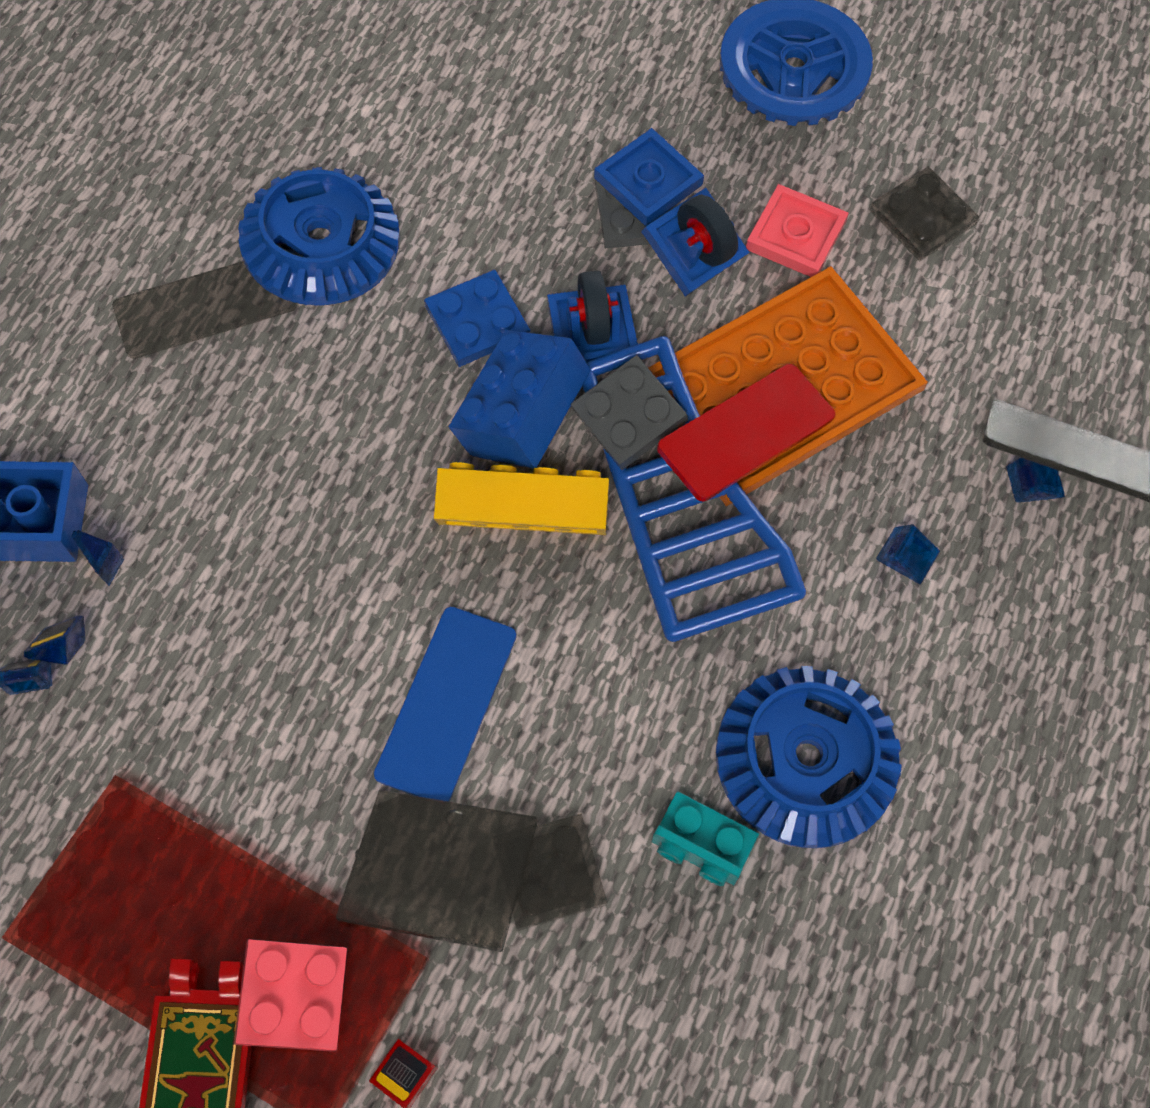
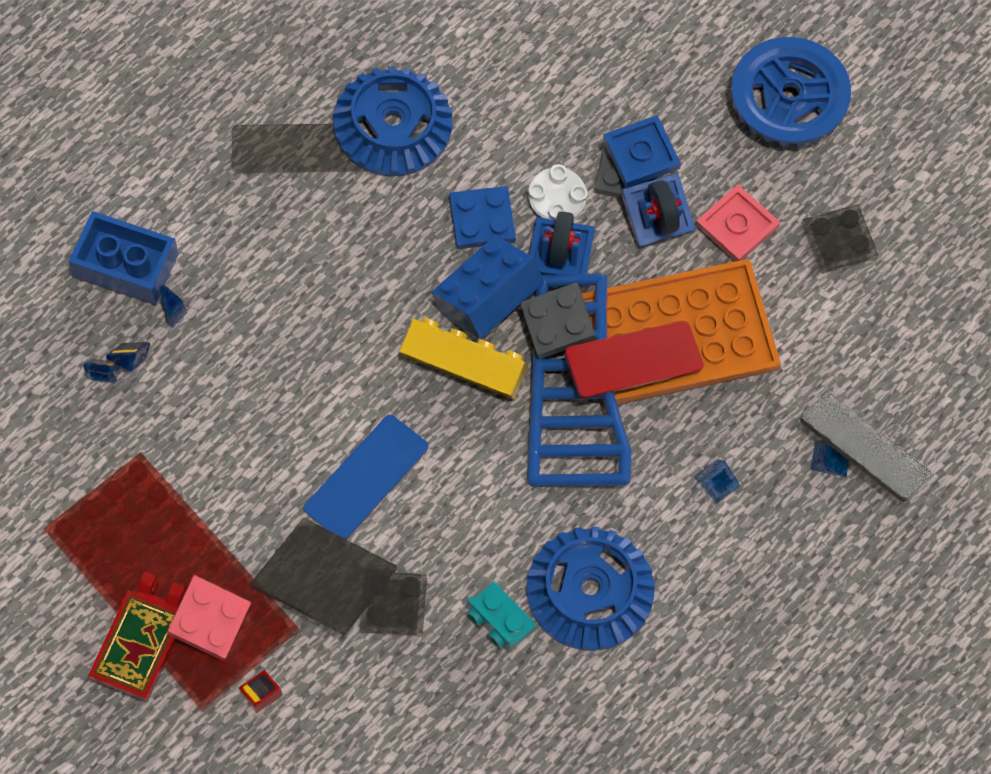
camera: 20 degrees right, 0 degrees up
(557, 258) = (557, 191): none -> white dish

